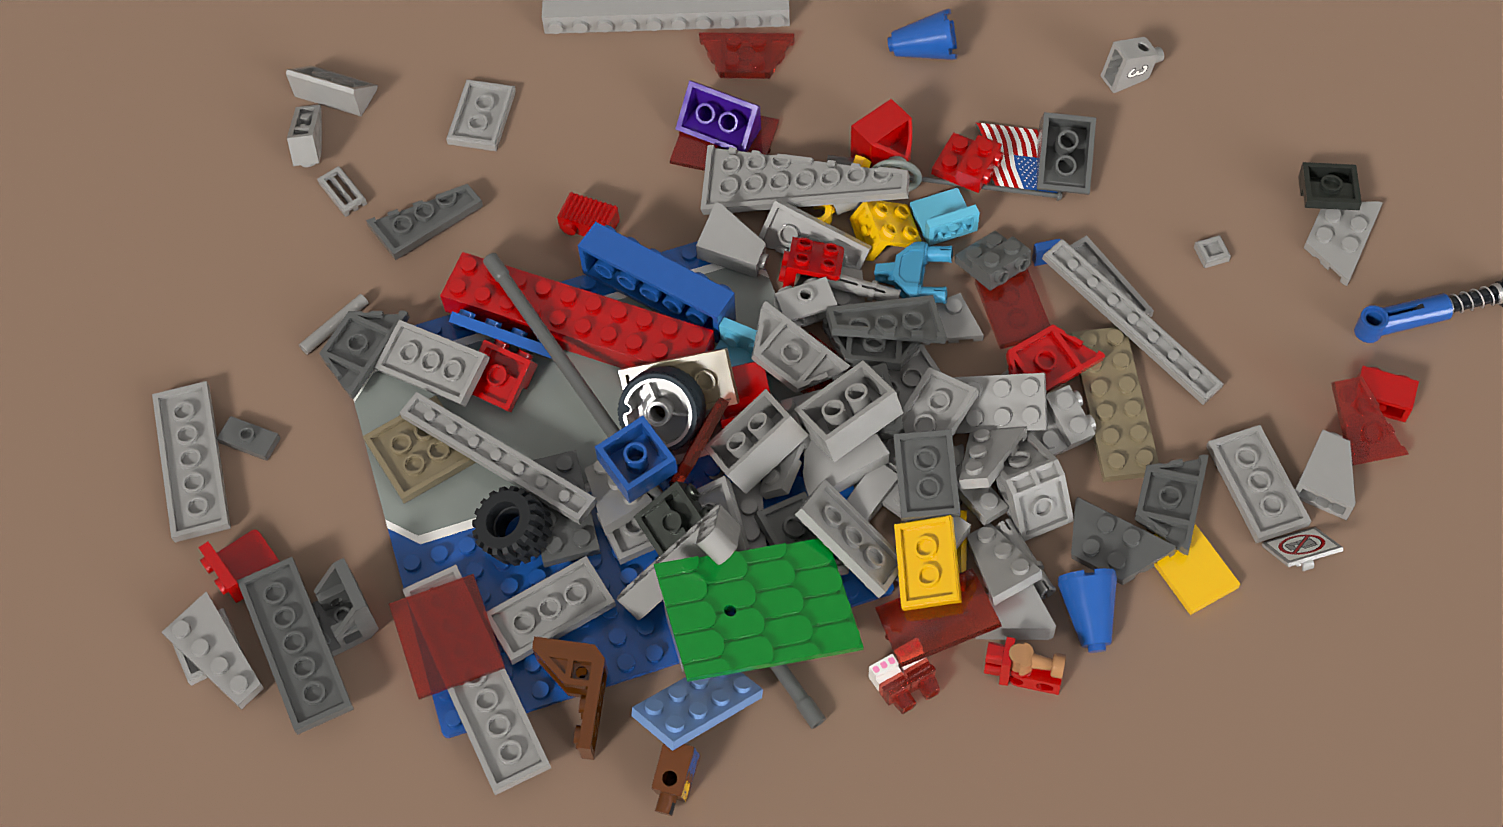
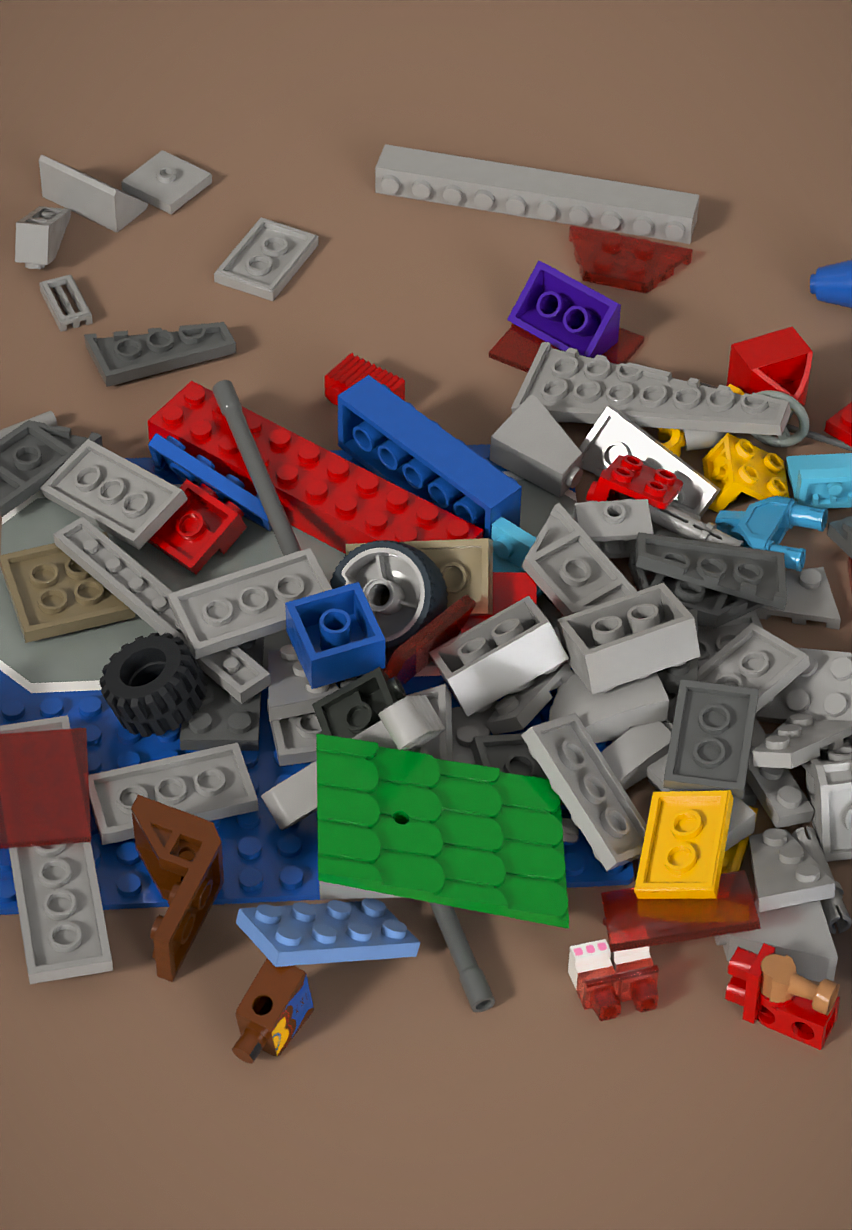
camera: 10 degrees right, 15 degrees down
(385, 62) = (166, 182): none -> light grey plate
(564, 443) = (245, 602): none -> light grey plate

